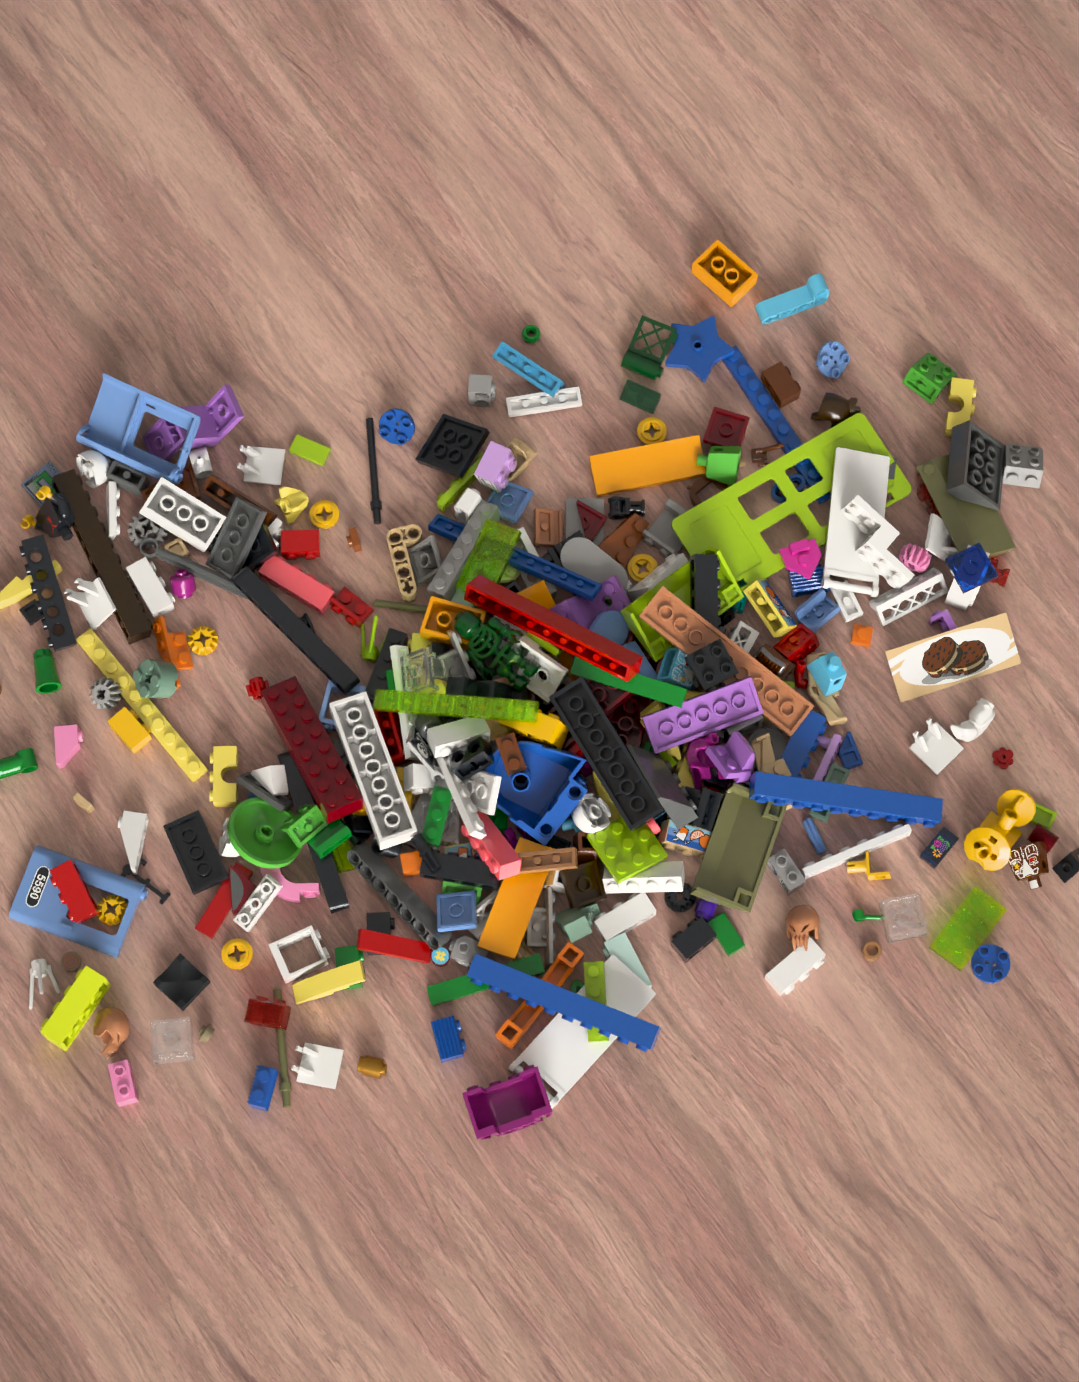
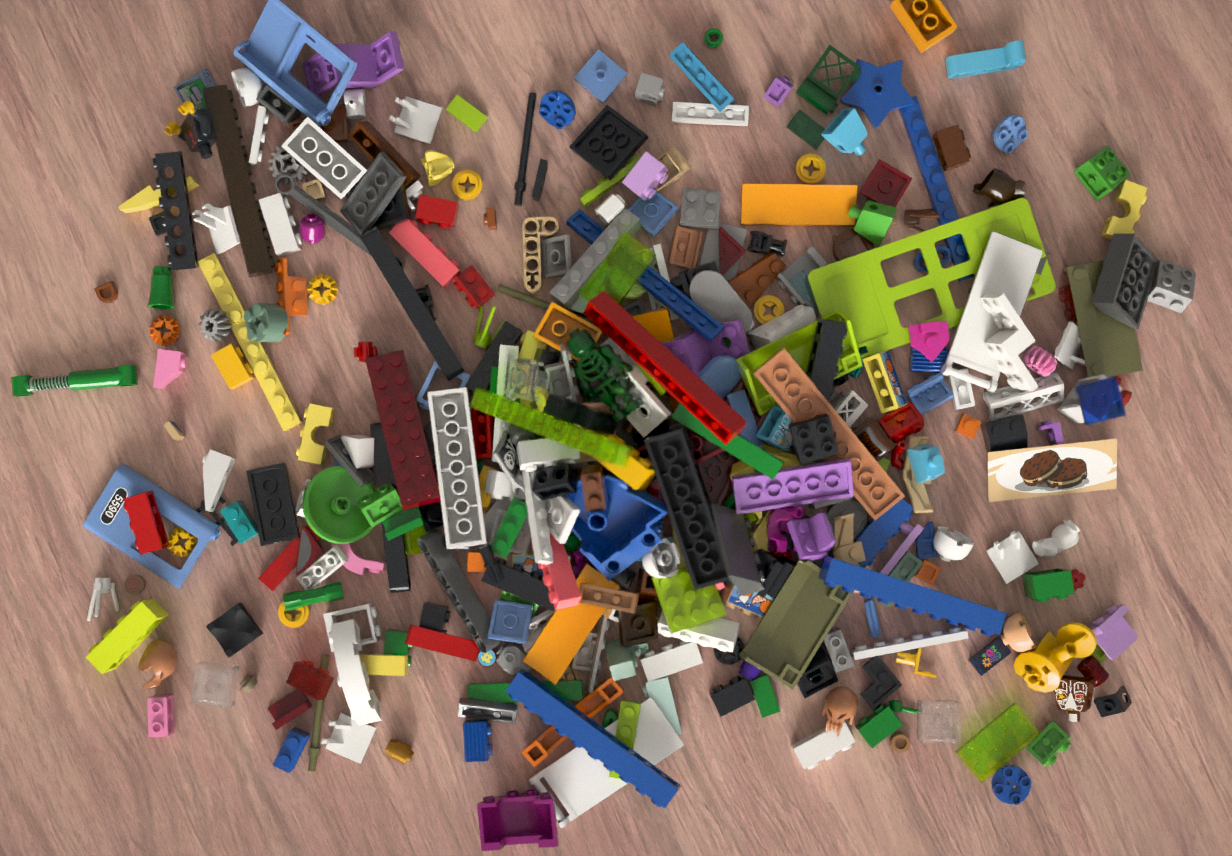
camera: 10 degrees right, 15 degrees up
(60, 717) = (168, 337): none -> orange gear
(167, 875) = (240, 521): none -> teal brick
(252, 1049) = (289, 708): none -> dark red panel
(254, 931) = (298, 599): none -> green axle
(312, 993) = (353, 673): none -> white brick
(394, 494) = (540, 179): none -> black tile
(431, 390) = (600, 76): none -> medium blue plate
(452, 1006) = (487, 710): none -> dark grey tile
(554, 488) = (700, 208): none -> light grey plate
(604, 367) = (778, 90): none -> medium lavender bracket
(669, 537) = (802, 287): none -> clear light blue tile
(677, 390) = (846, 132): none -> medium azure torso
(771, 899) = (817, 675): none -> black slope
(840, 895) = (884, 682): none -> black plate
(845, 937) = (878, 725): none -> green brick
(858, 778) = (928, 572): none -> orange tile
(873, 747) = (951, 544): none -> white cylinder
(898, 631) = (1005, 434): none -> black slope
(958, 817) = (1018, 634): none -> light nougat cylinder
(975, 762) = (1048, 583): none -> green brick
(1019, 919) = (1049, 744): none -> bright green bracket
(1051, 795) = (1113, 631): none -> lavender bracket

